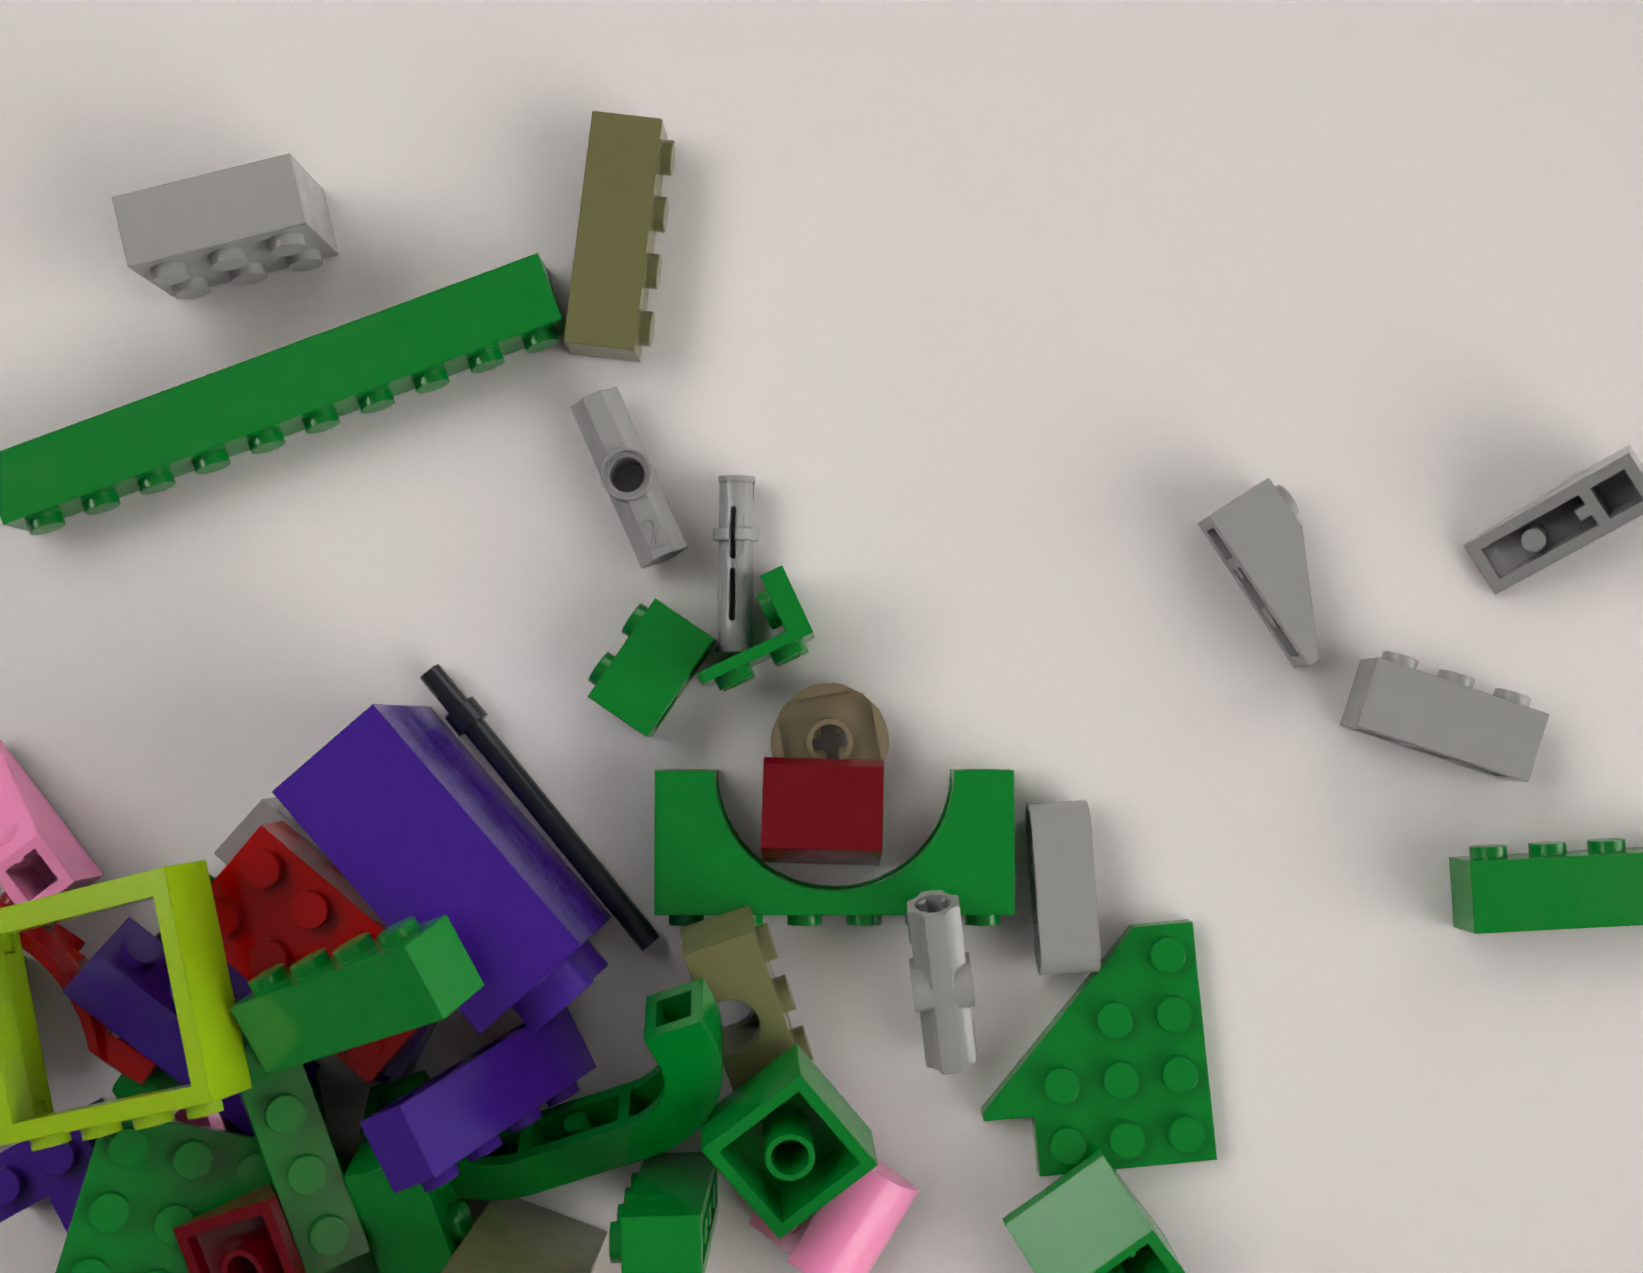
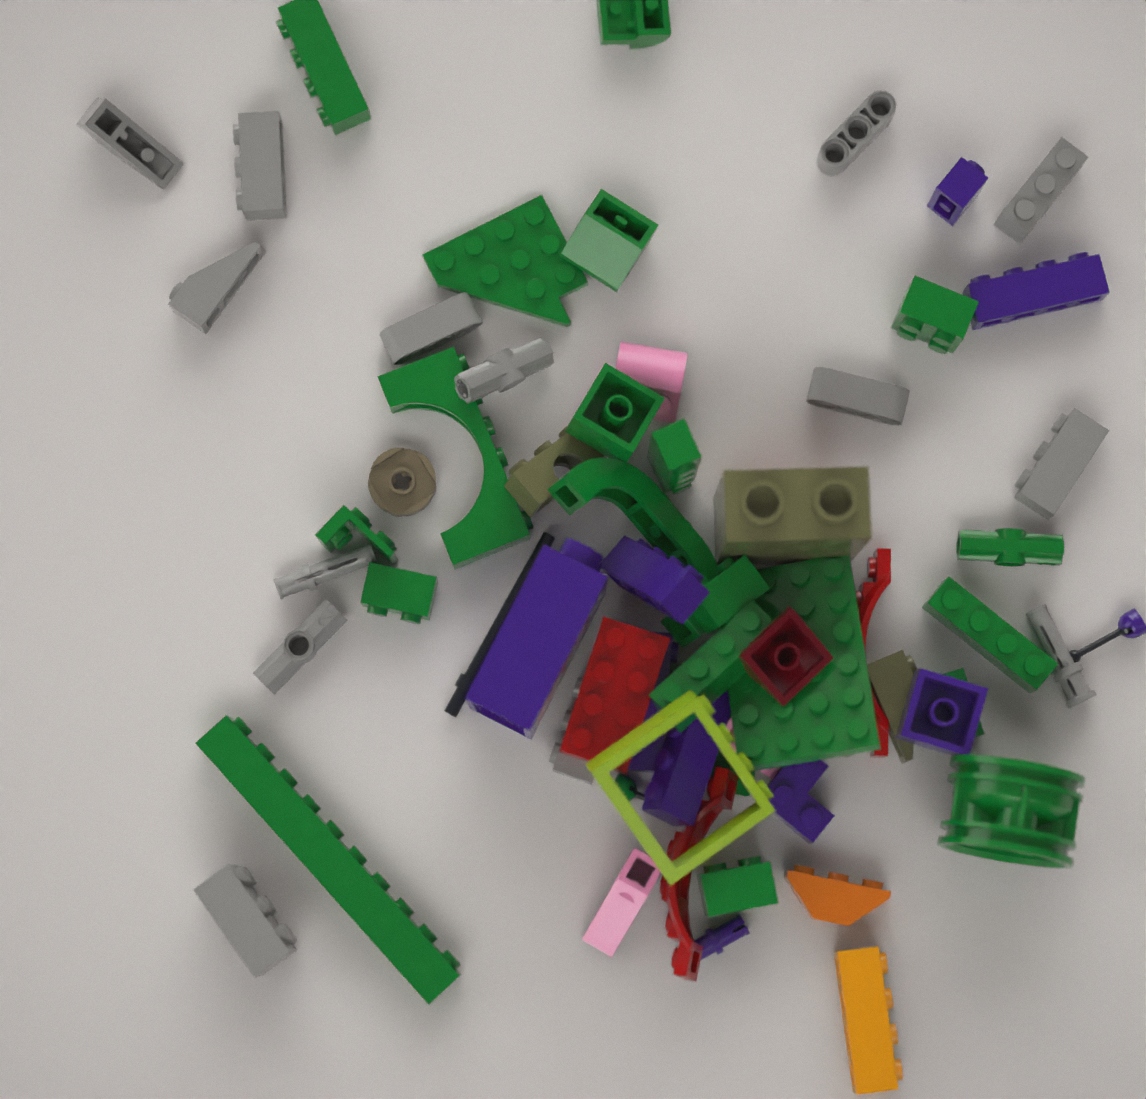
camera: 115 degrees left, 5 degrees down
(357, 994) = (614, 647): green brick -> none
(617, 237) = (168, 707): olive brick -> none
(822, 811) = (440, 468): dark red slope -> none

